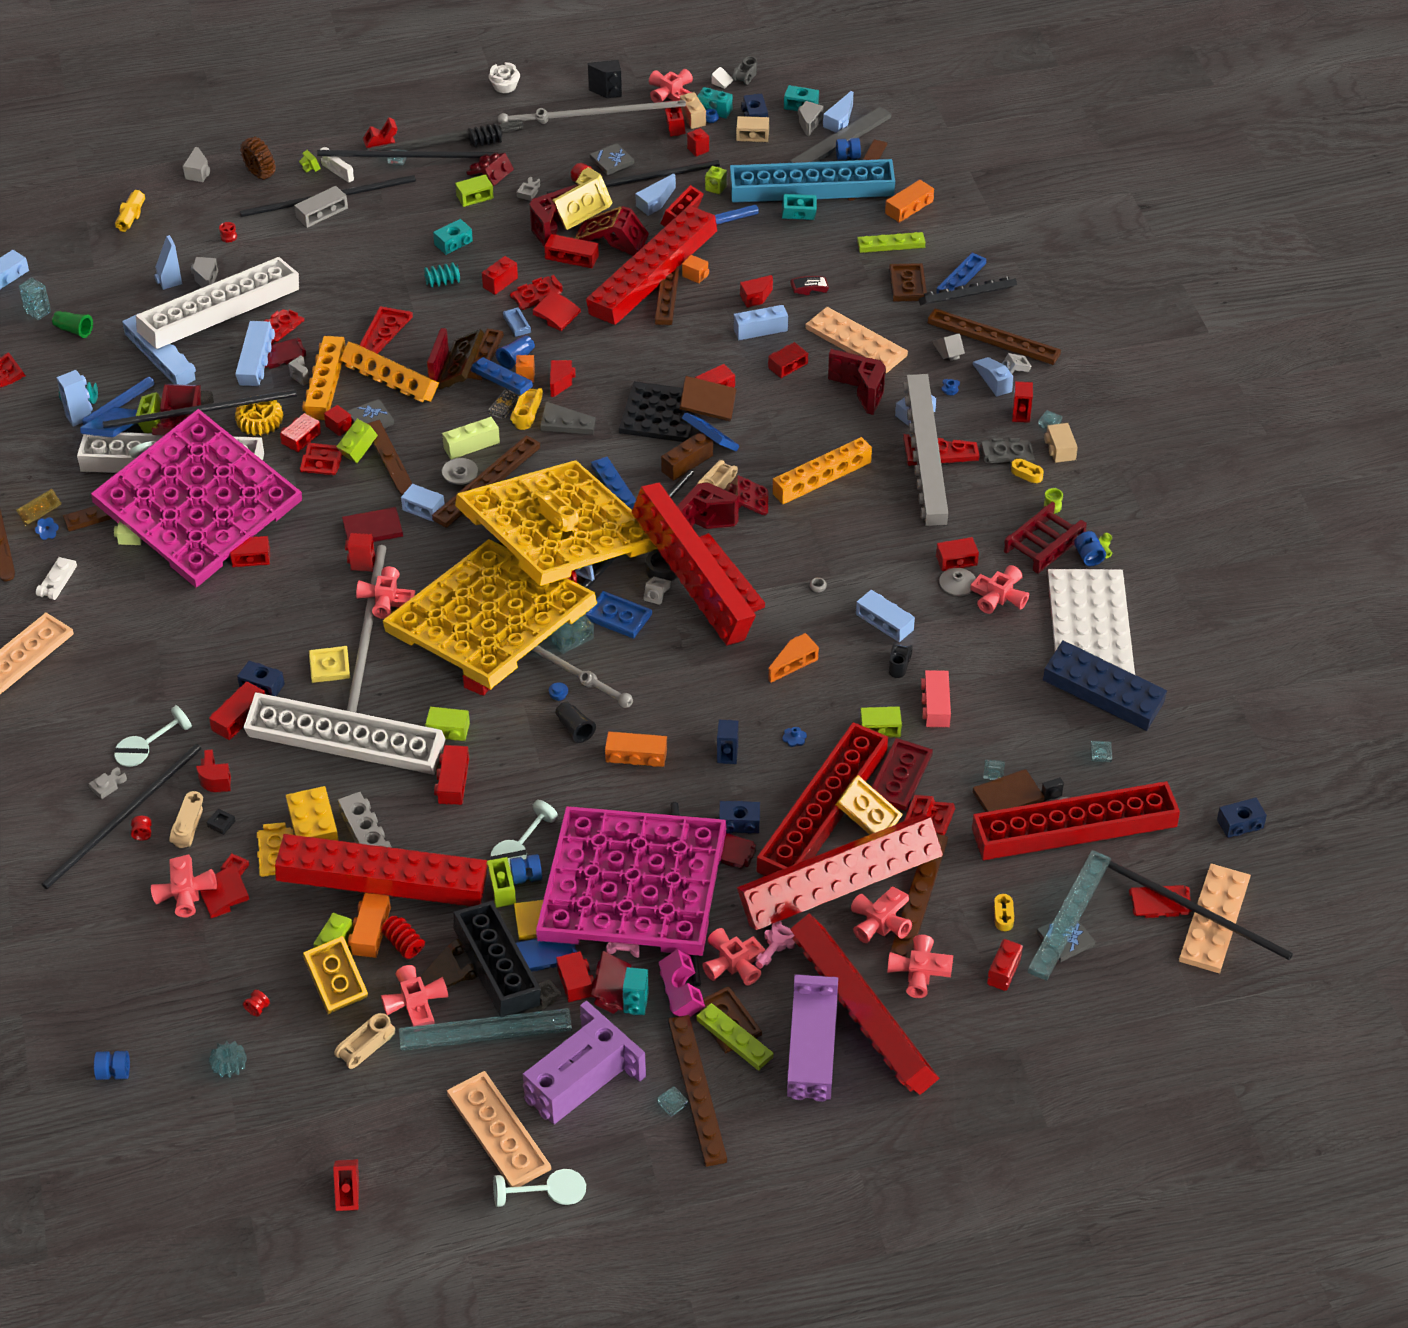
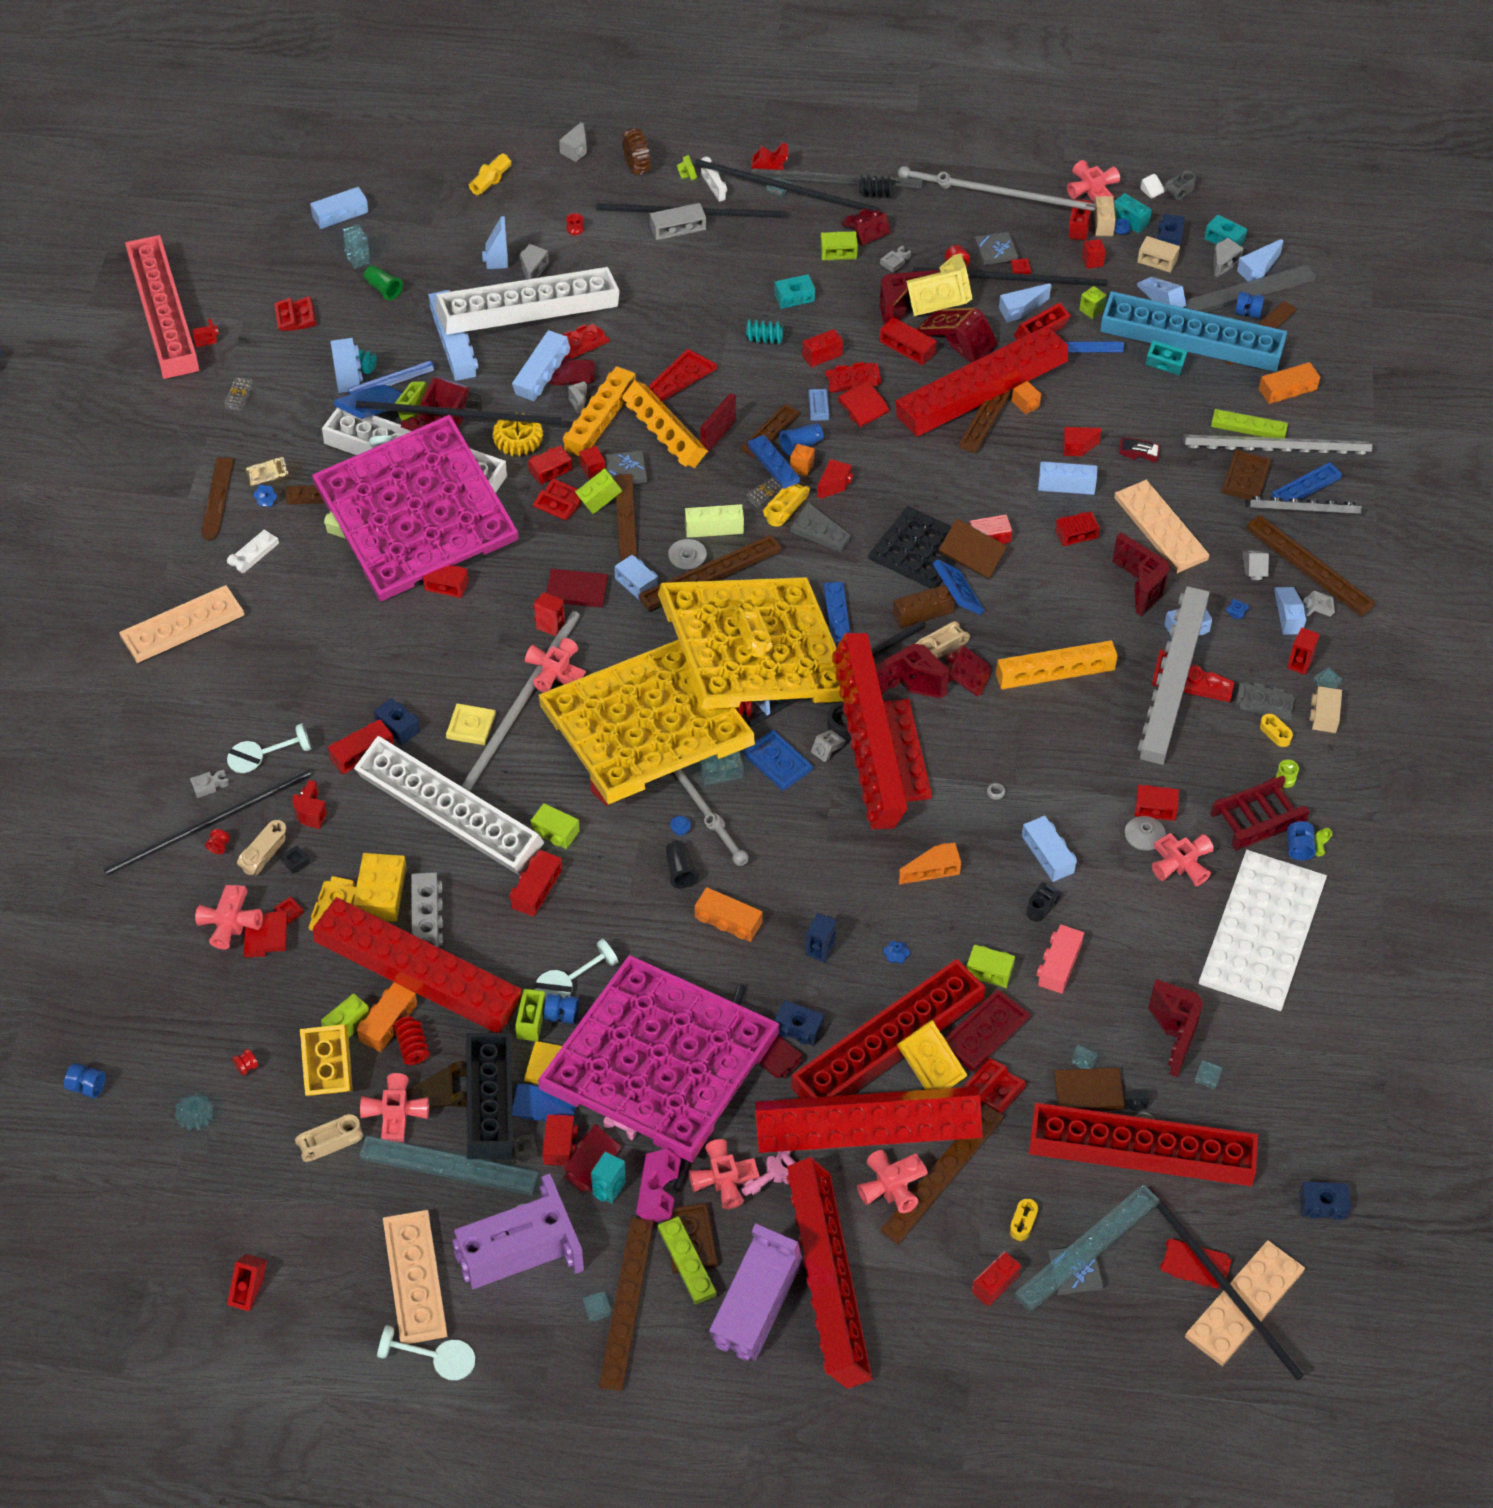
camera: 20 degrees right, 5 degrees up
(460, 359) = (740, 430): dark brown plate -> none
(504, 77) = (923, 126): white cone -> none
(605, 78) = (1027, 155): black slope -> none
(639, 168) = (1020, 266): none -> red tile
(770, 155) = (1163, 291): none -> light blue slope
(915, 252) = (1285, 444): none -> light grey plate
(921, 965) = (908, 1249): coral brick -> none
(1053, 704) = (1172, 1006): none -> dark red bracket
(1104, 685) = (1243, 1002): dark blue brick -> none

